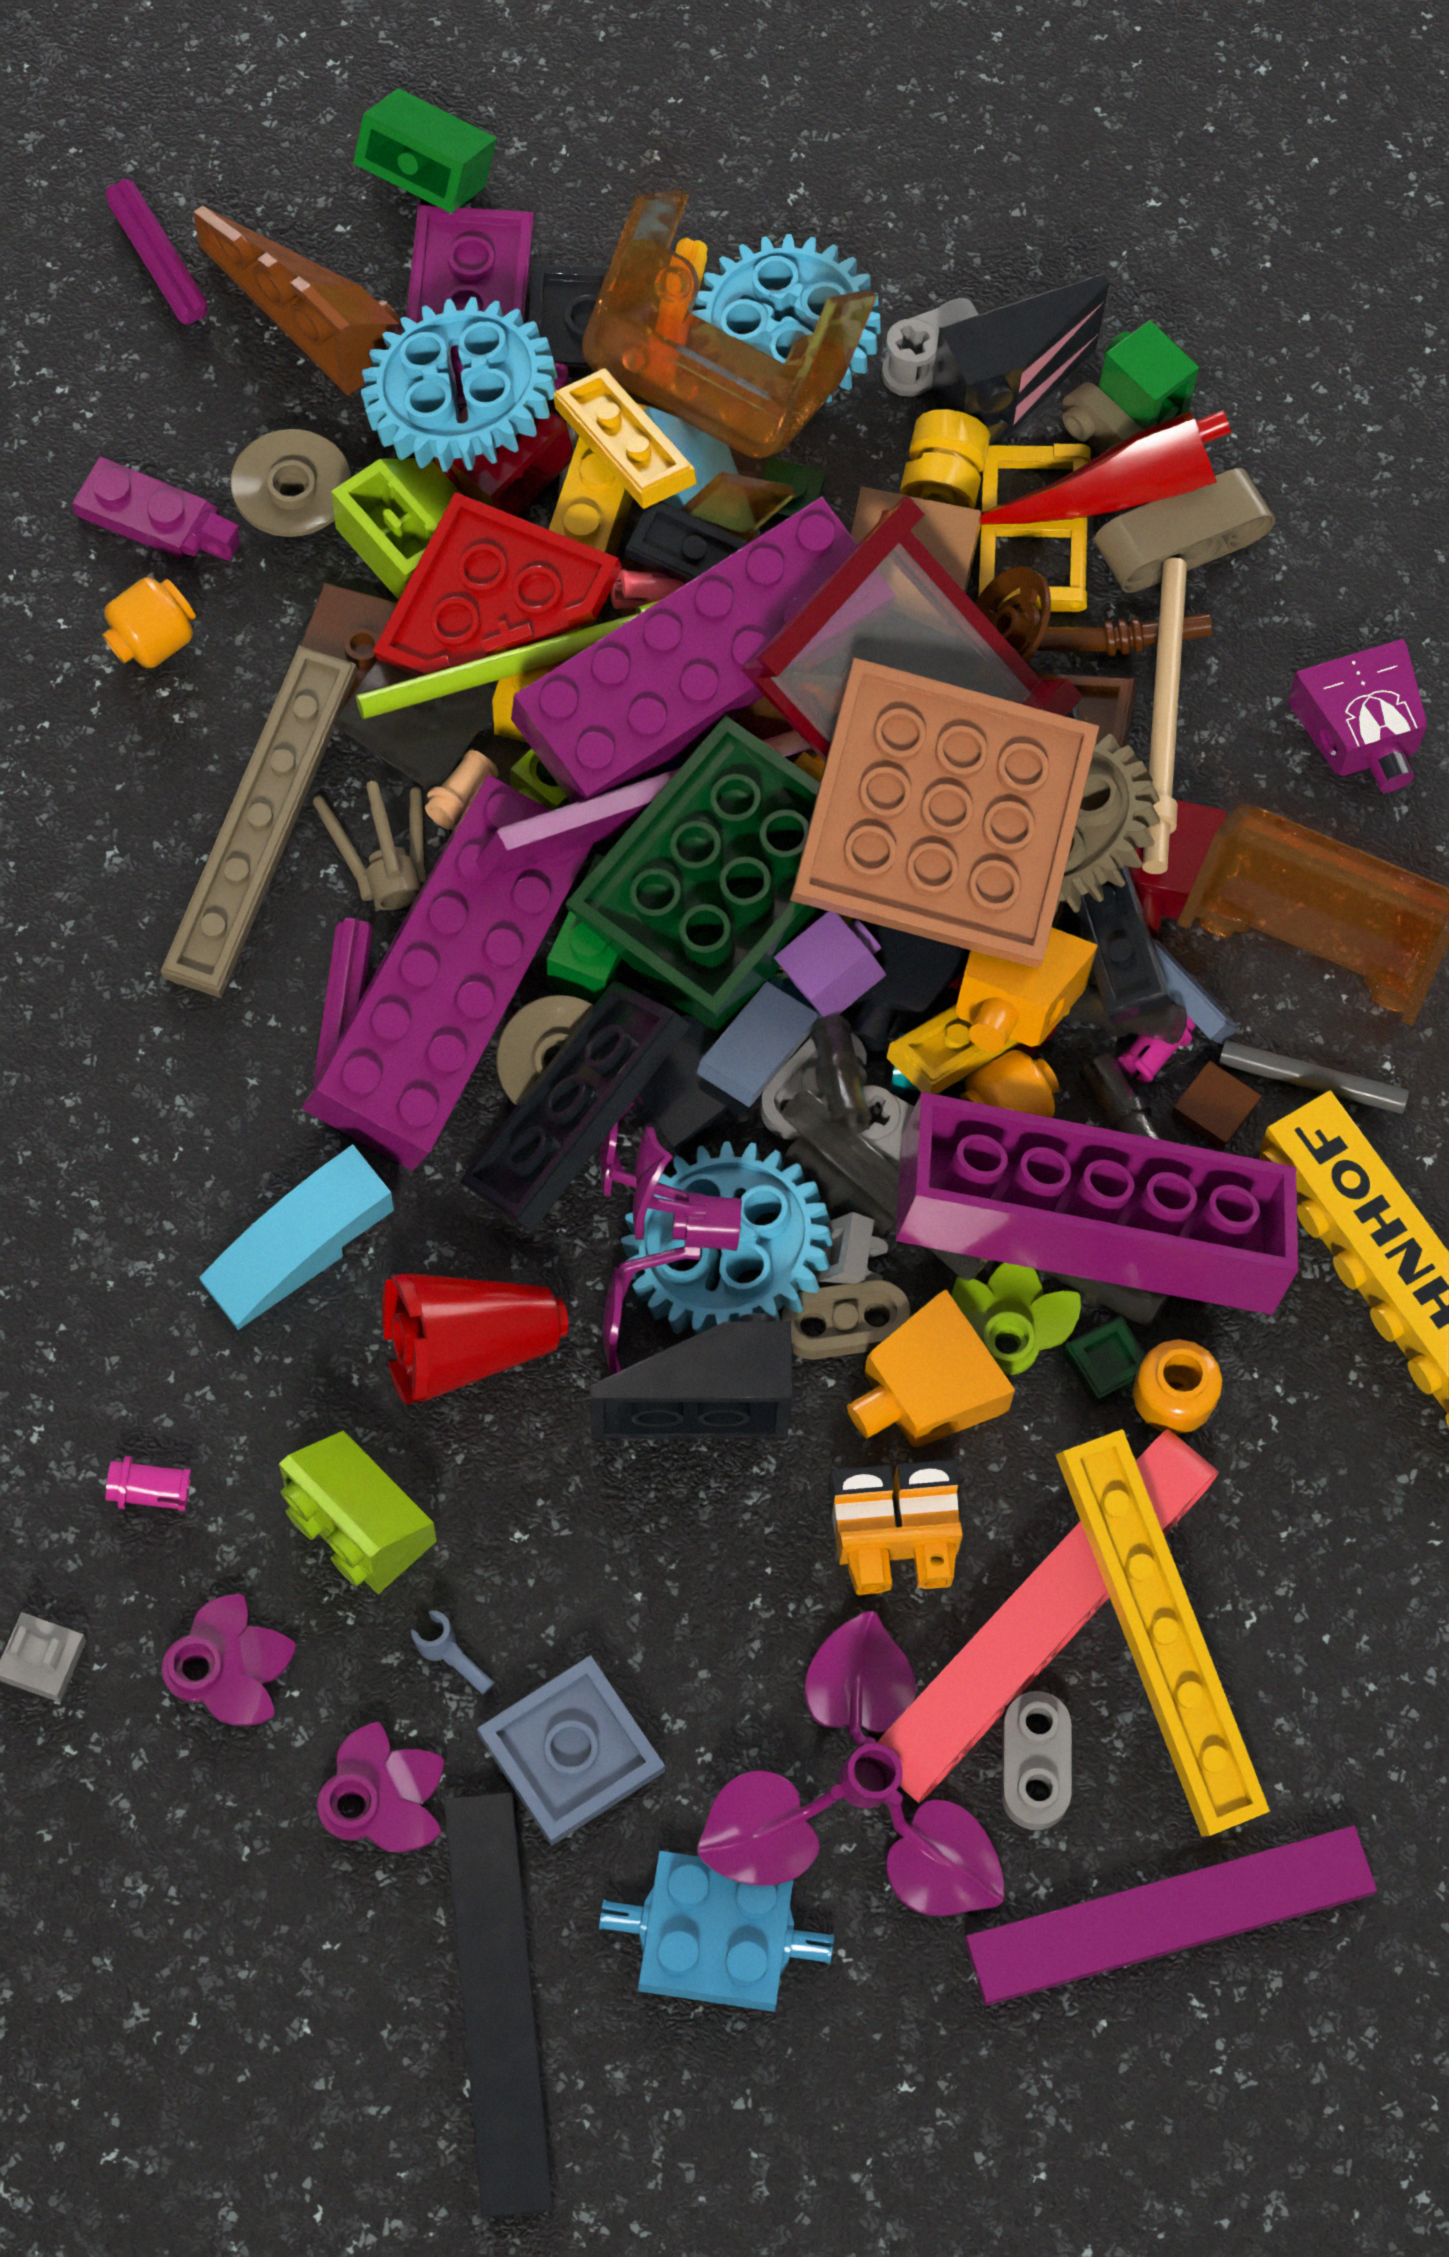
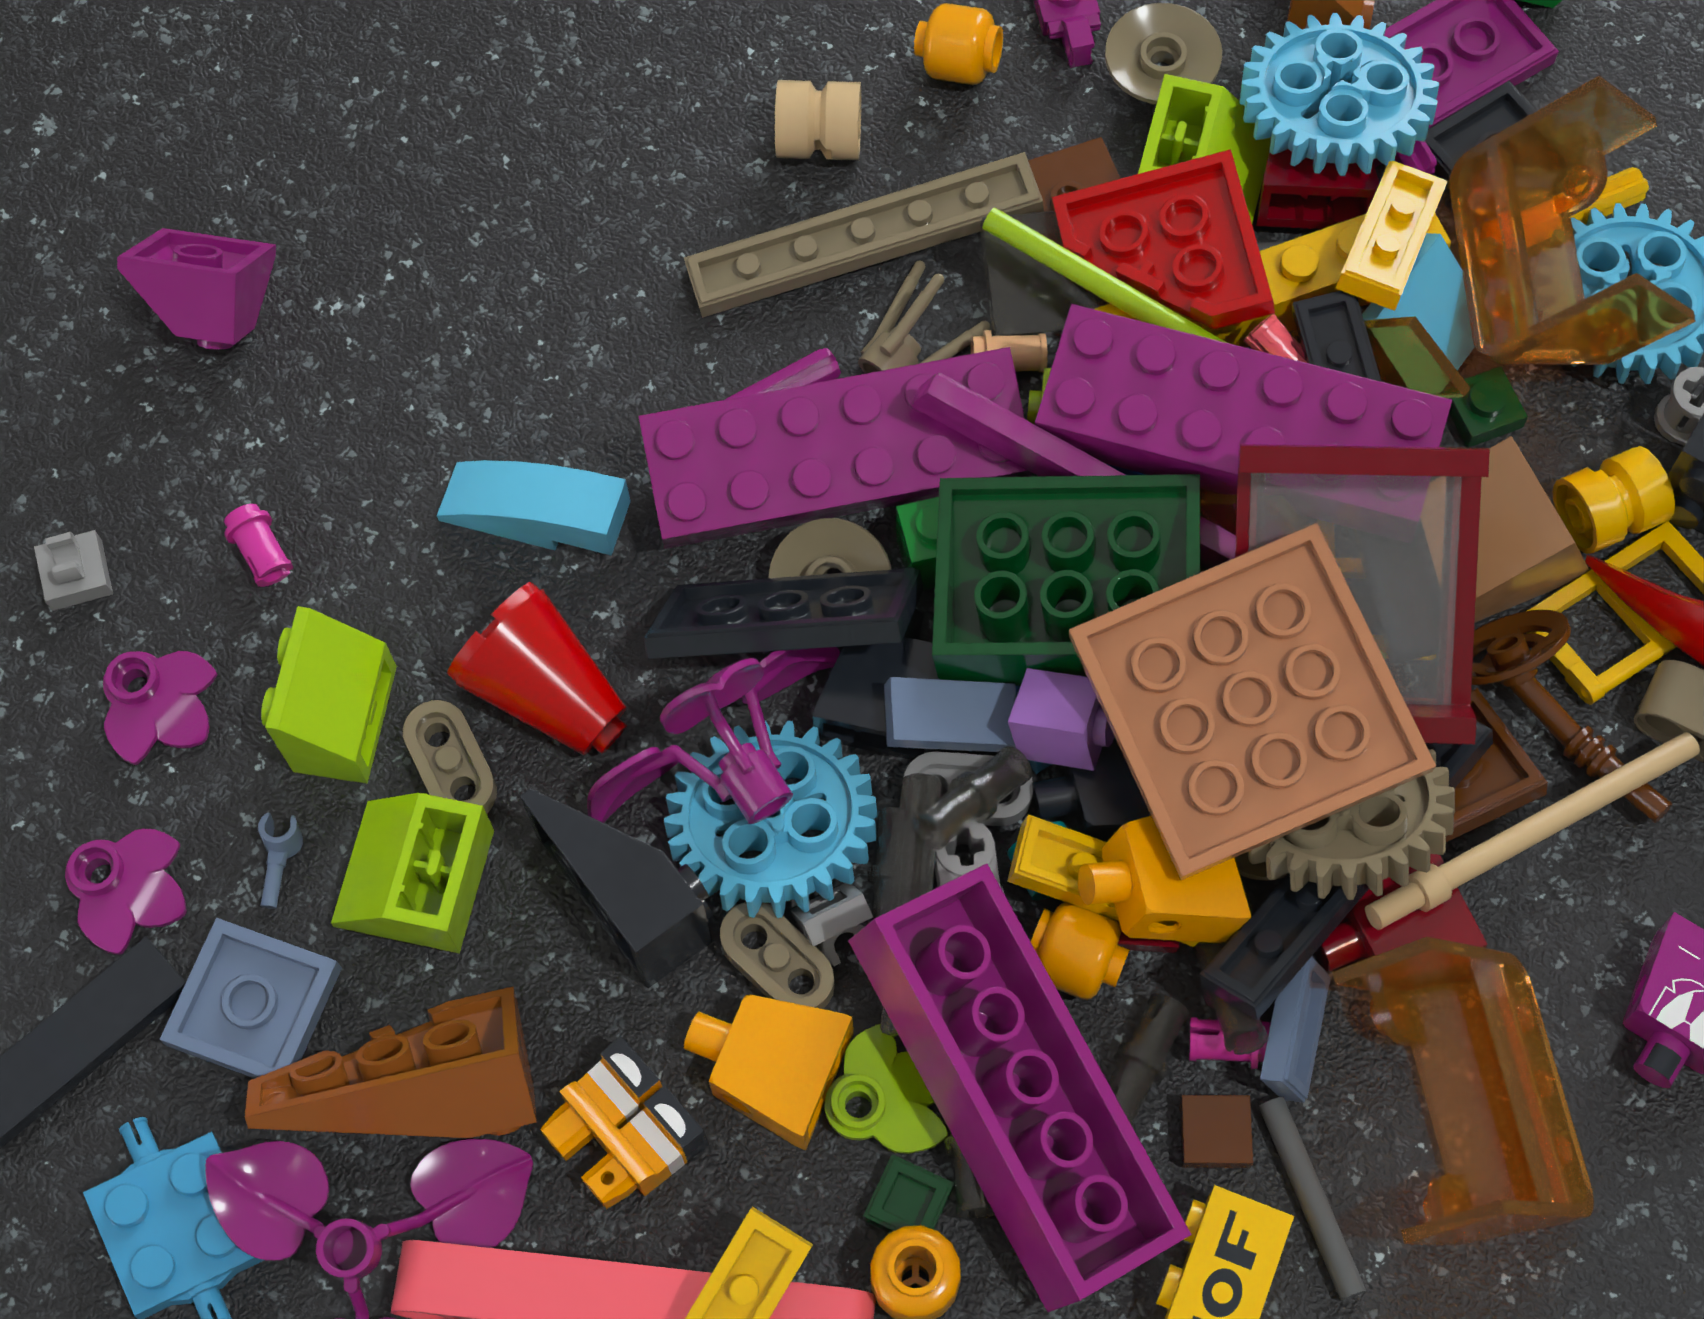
camera: 60 degrees right, 0 degrees up
(119, 785) = (818, 120): none -> tan wheel
(480, 1453) = (454, 763): none -> dark tan plate
(557, 1544) = (415, 870): none -> lime slope
(750, 1634) = (441, 1079): none -> dark orange wedge

